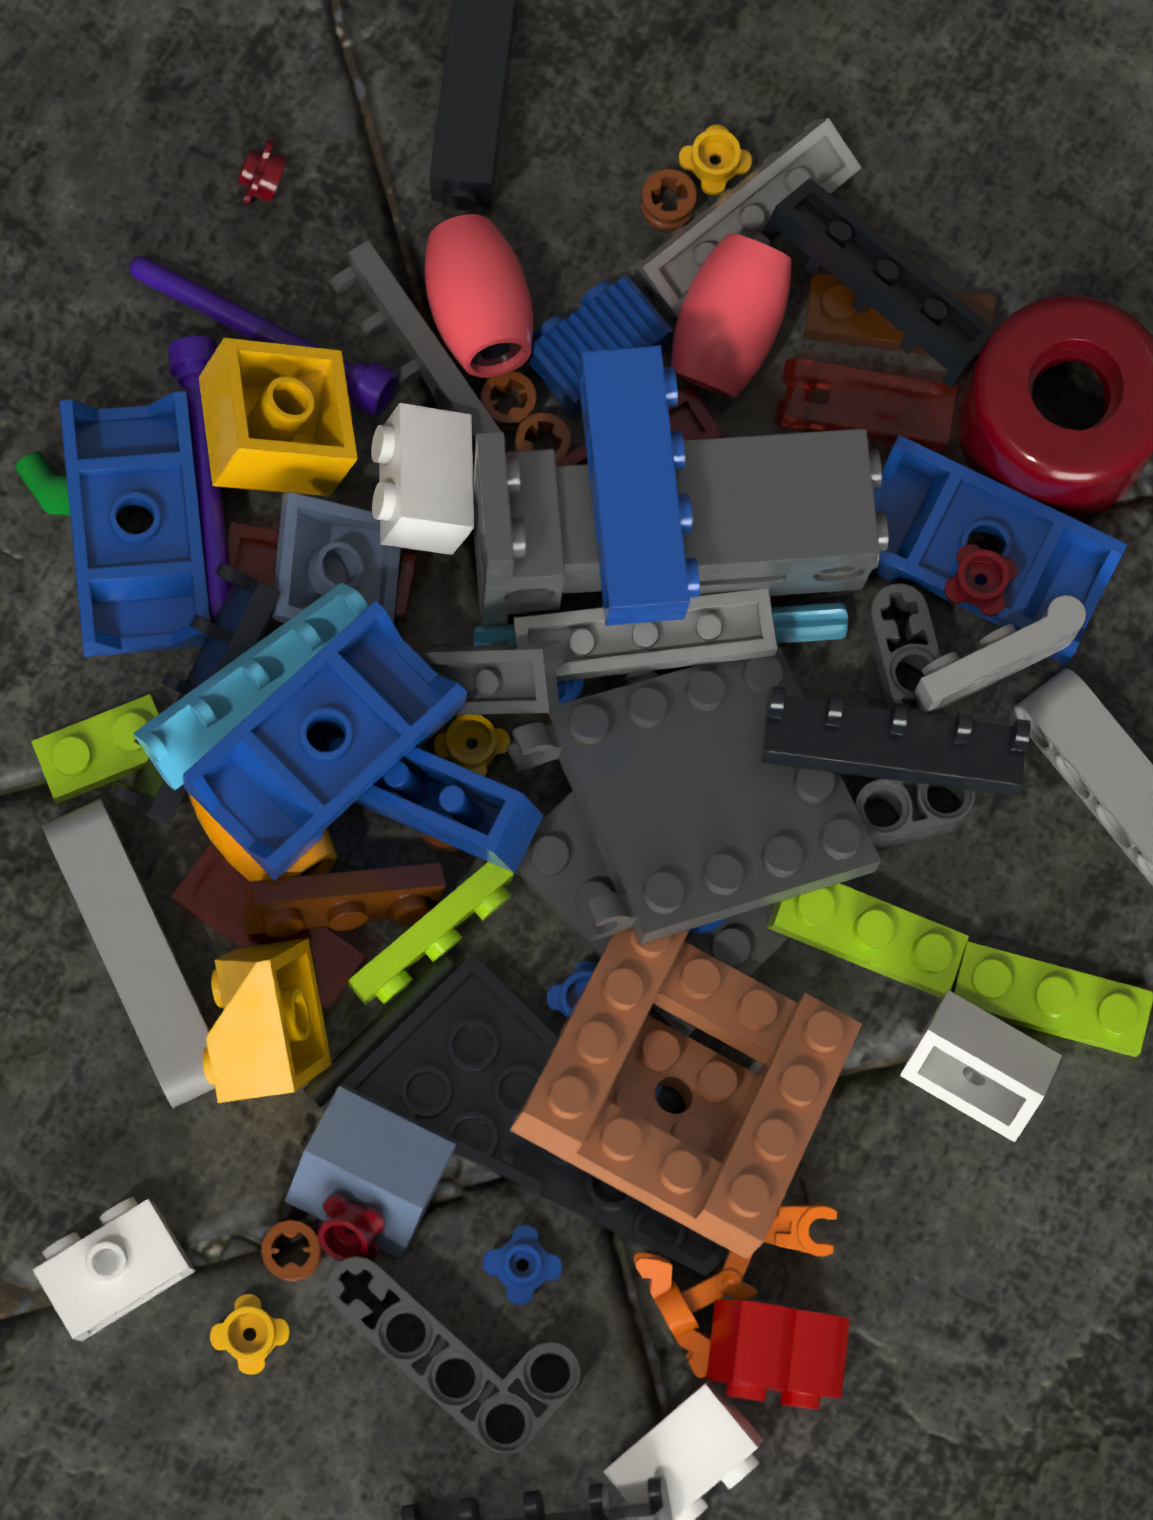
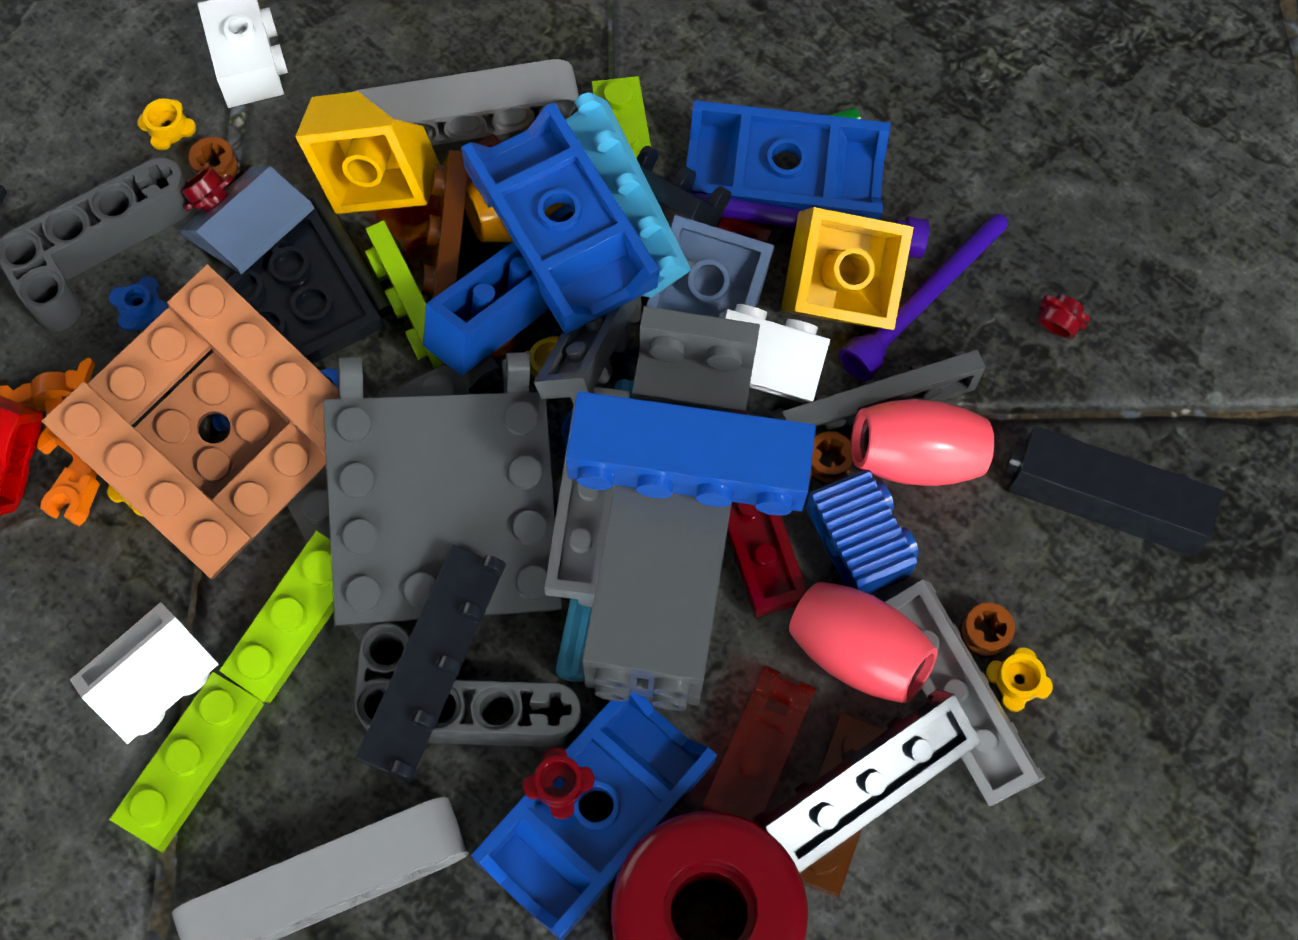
camera: 105 degrees right, 10 degrees down
(1000, 656) = (480, 775): light grey plate -> none

